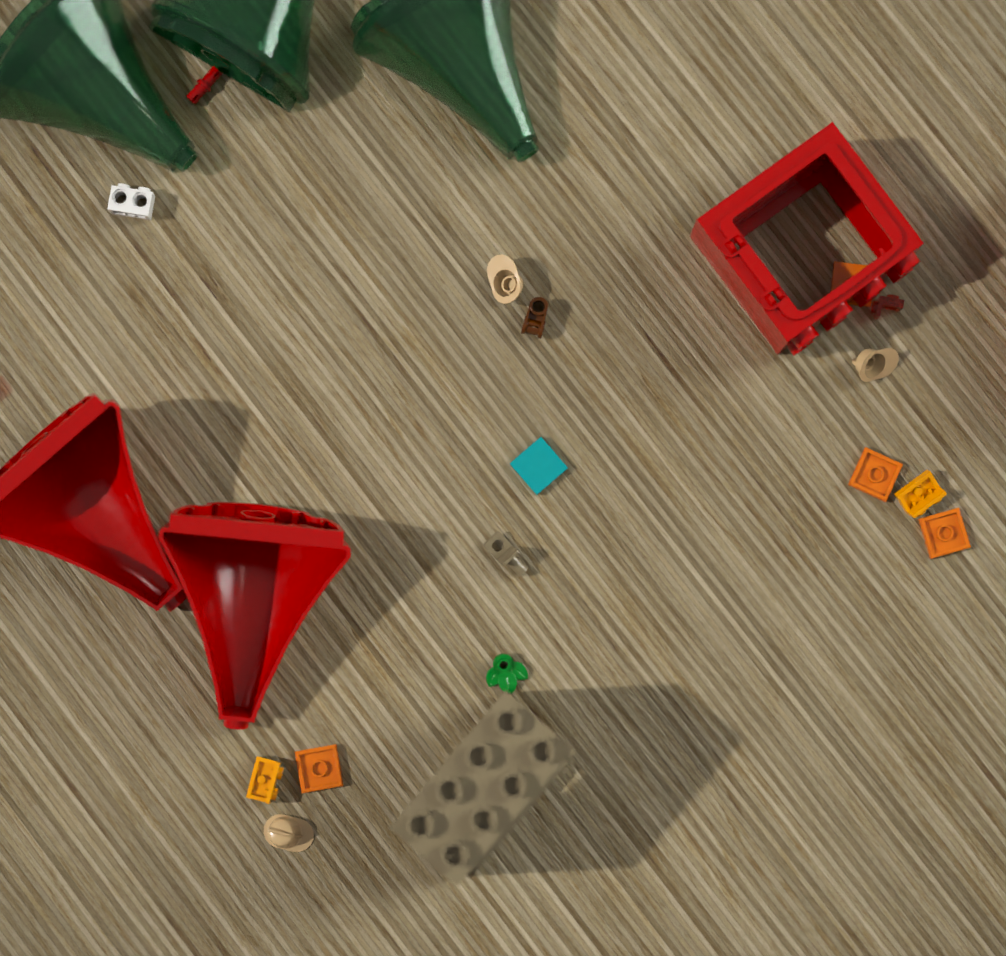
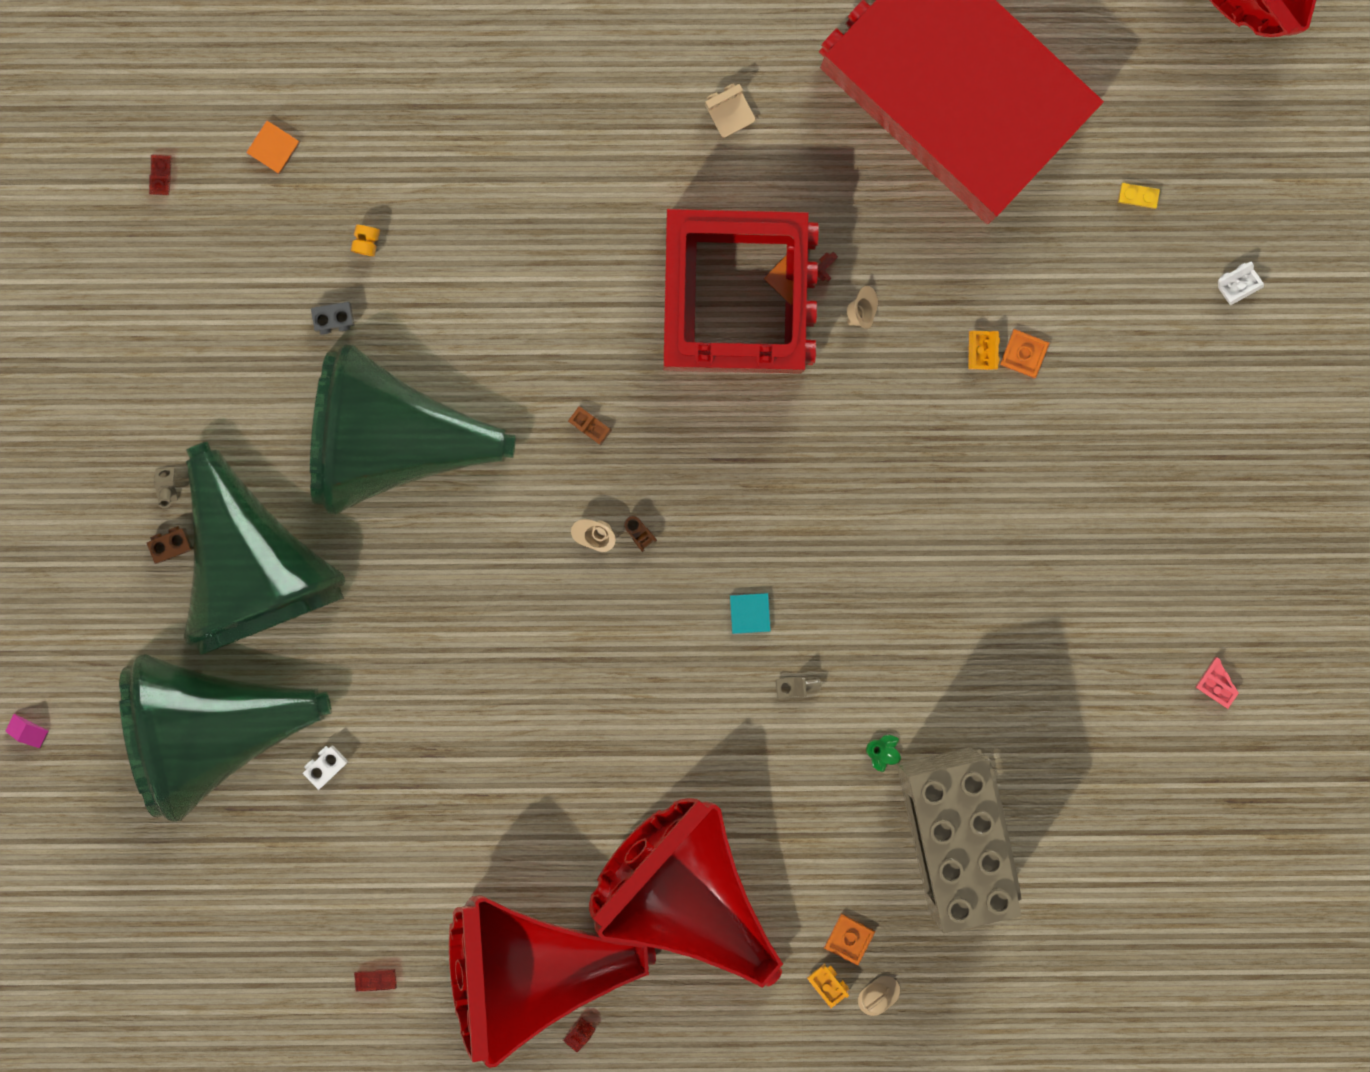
camera: 50 degrees left, 5 degrees up
(58, 594) = (579, 1035): none -> clear red bracket
(203, 85) = (275, 647): red pin -> none
(595, 208) = (589, 425): none -> dark orange slope
(789, 924) = (1217, 684): none -> coral wing
(875, 474) = (943, 371): orange tile -> none
(954, 124) = (729, 110): none -> tan bracket

